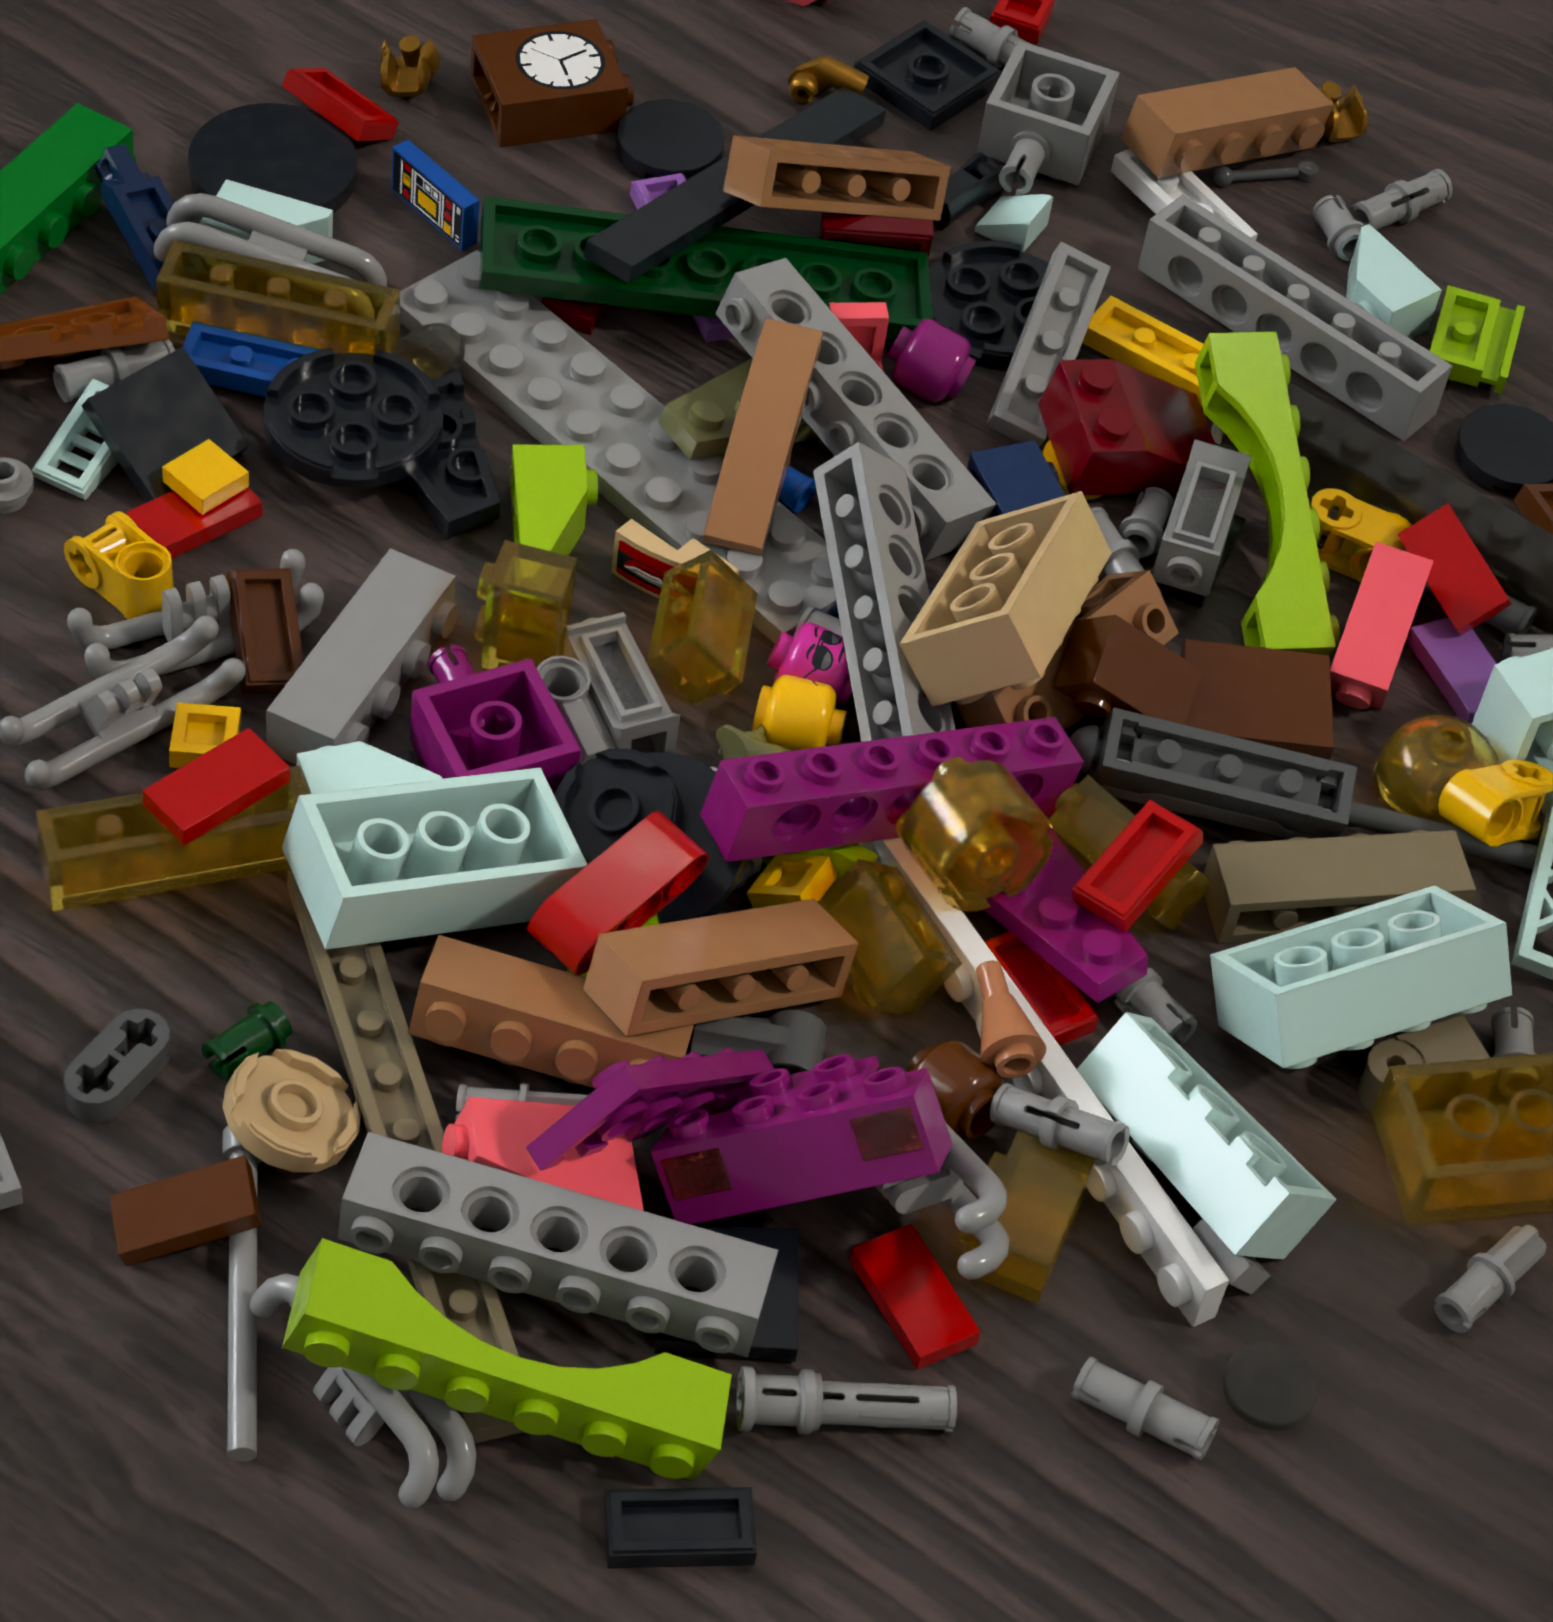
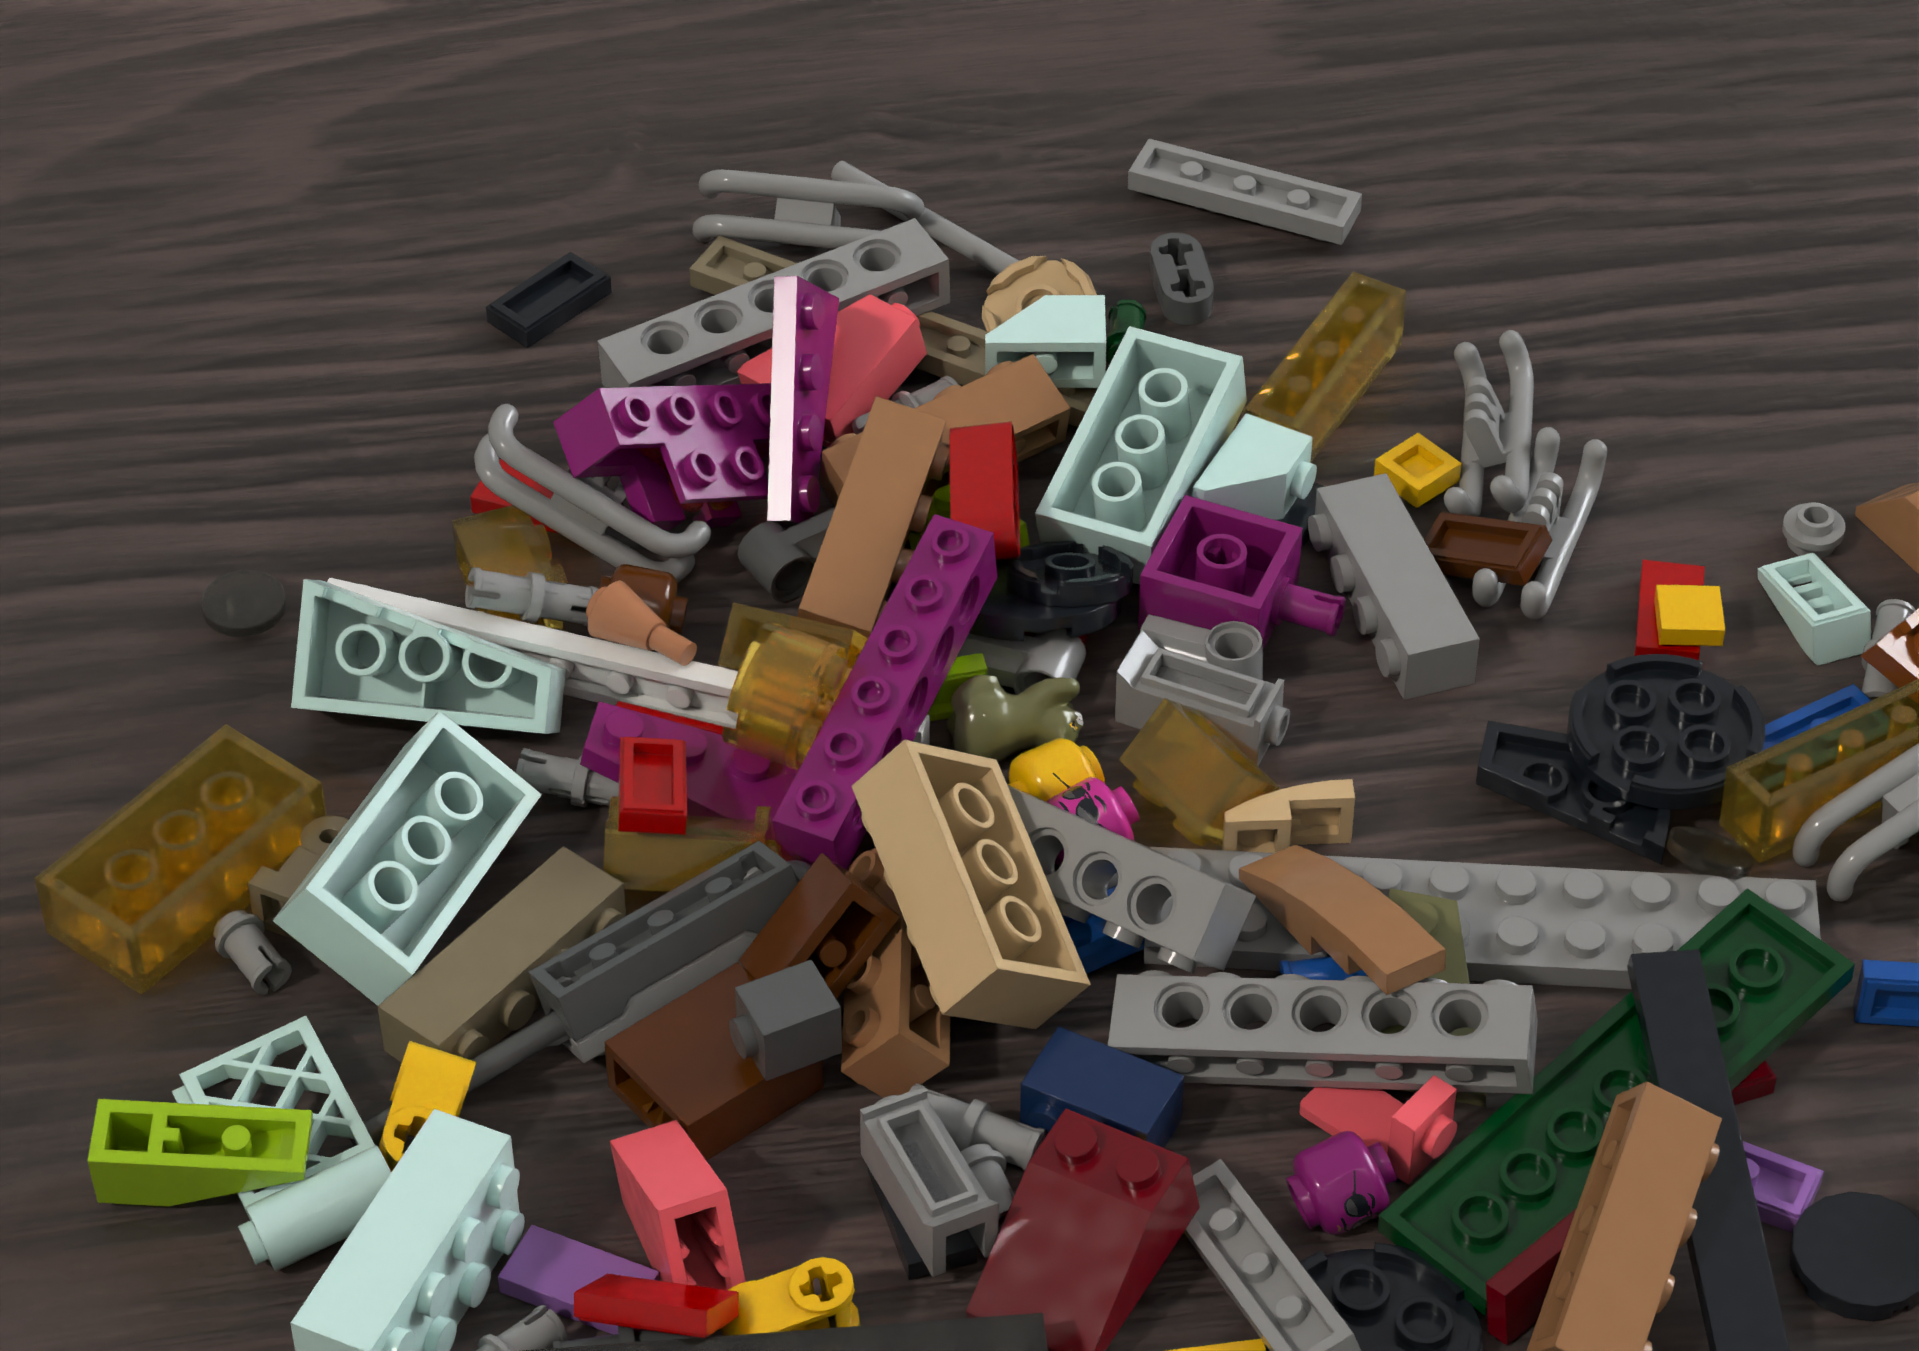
camera: 145 degrees right, 5 degrees down
(122, 565) = (1636, 524): yellow piece -> none
(160, 417) = (1778, 624): black tile -> none
(185, 1210) = (1026, 228): reddish brown tile -> none
(216, 786) = (1319, 365): red tile -> none
(361, 1019) = (1063, 335): none -> light aqua slope
(370, 1320) = (804, 164): lime arch -> none
(526, 605) = (1325, 664): clear yellow brick -> none
(550, 495) = (1437, 790): lime slope -> none
(809, 1402) = (536, 392): light grey pin -> none
(1145, 1408) = (317, 528): light grey pin -> none
(1217, 632) = (786, 1020): none -> dark grey brick
(1247, 397) = (988, 1260): lime arch -> none
(1424, 758) = (540, 1129): clear yellow cylinder -> none
(1489, 1278) = (141, 760): light grey axle -> none

